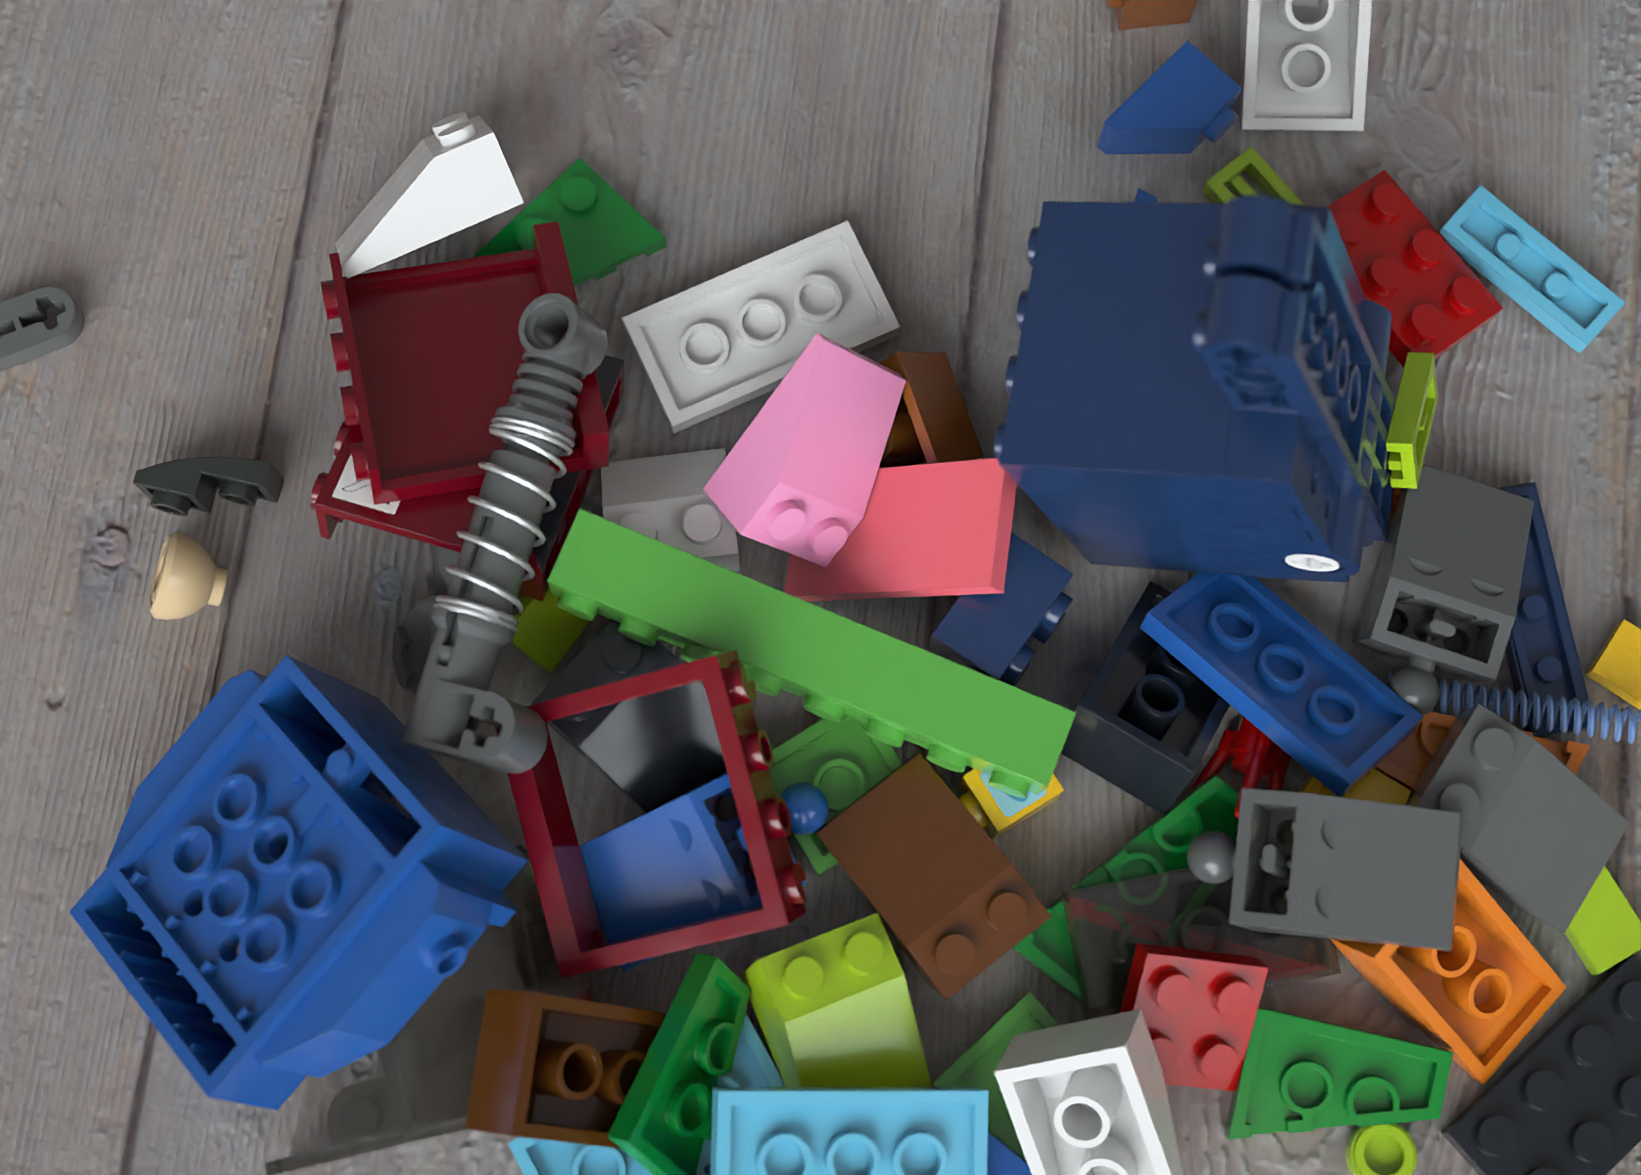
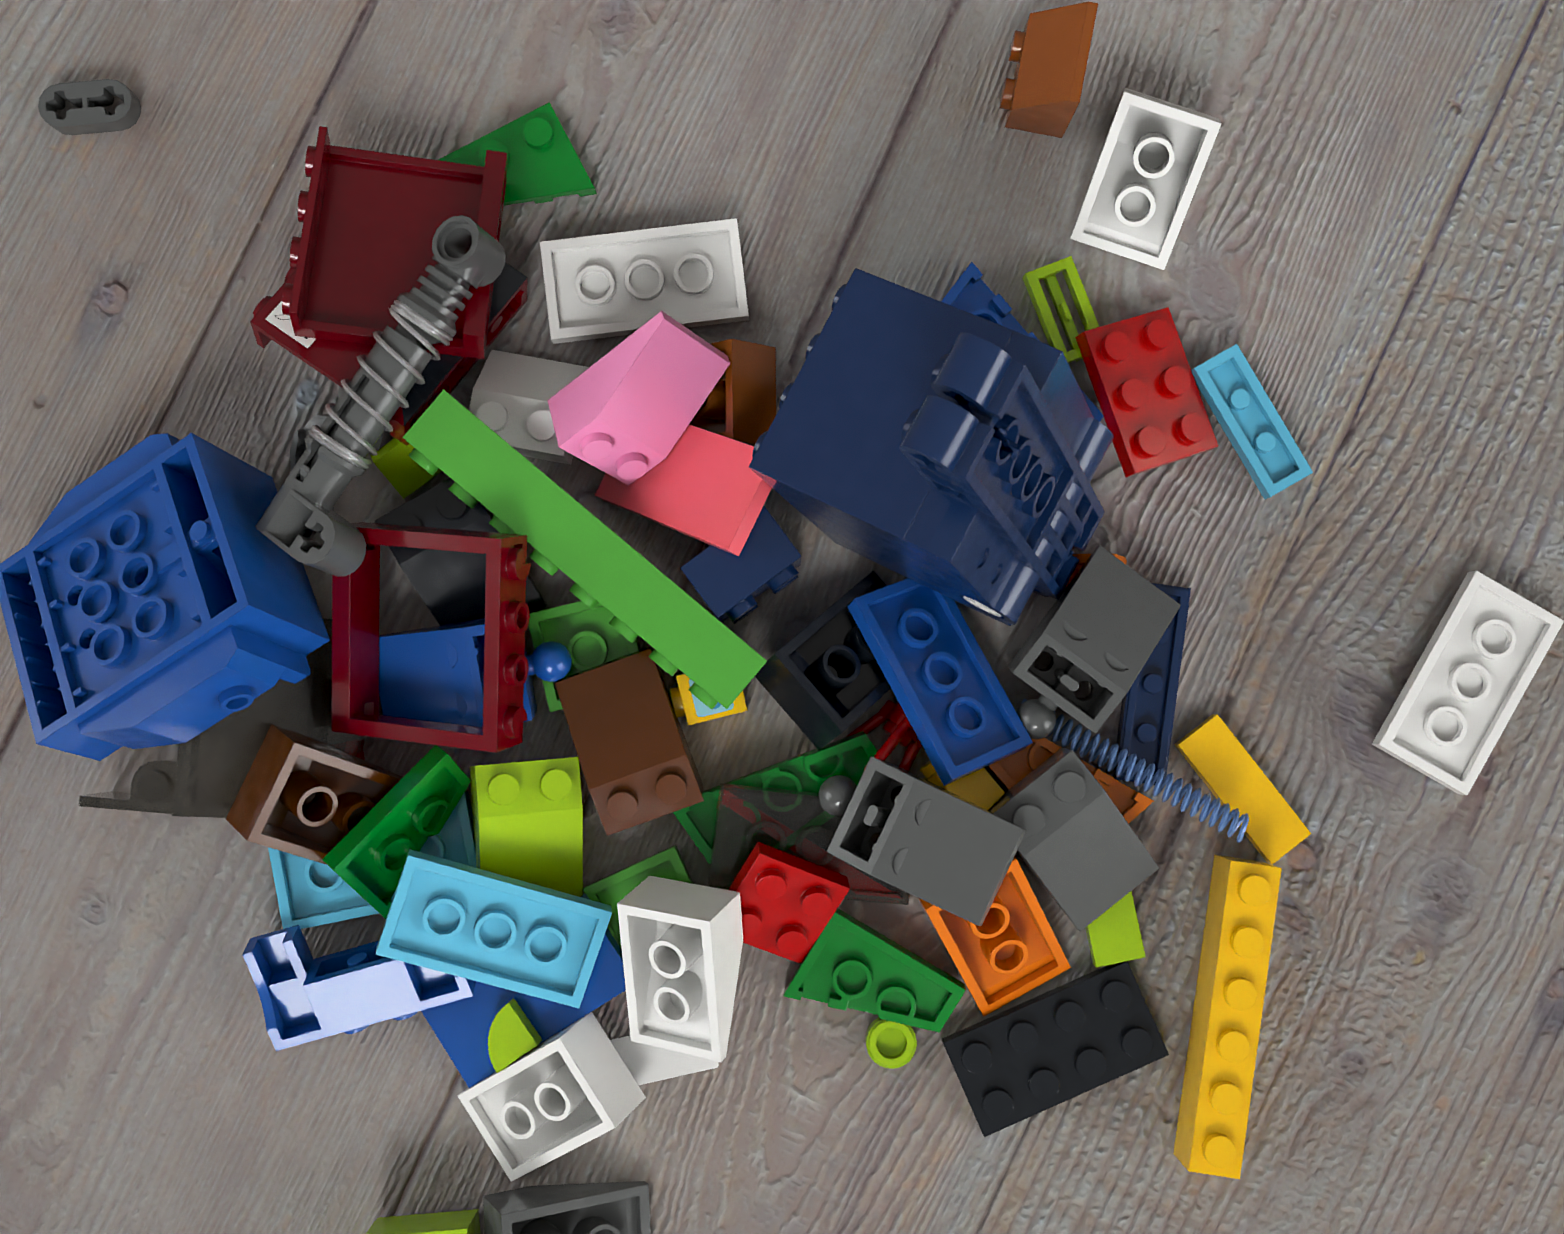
camera: 20 degrees right, 10 degrees up
(185, 579) = (154, 342): tan brick -> none
(194, 483) = (189, 271): pearl dark grey slope -> none
(436, 191) = (430, 98): white slope -> none
(1174, 108) = (1021, 206): blue slope -> none
(1412, 420) = (1109, 514): lime tile -> none

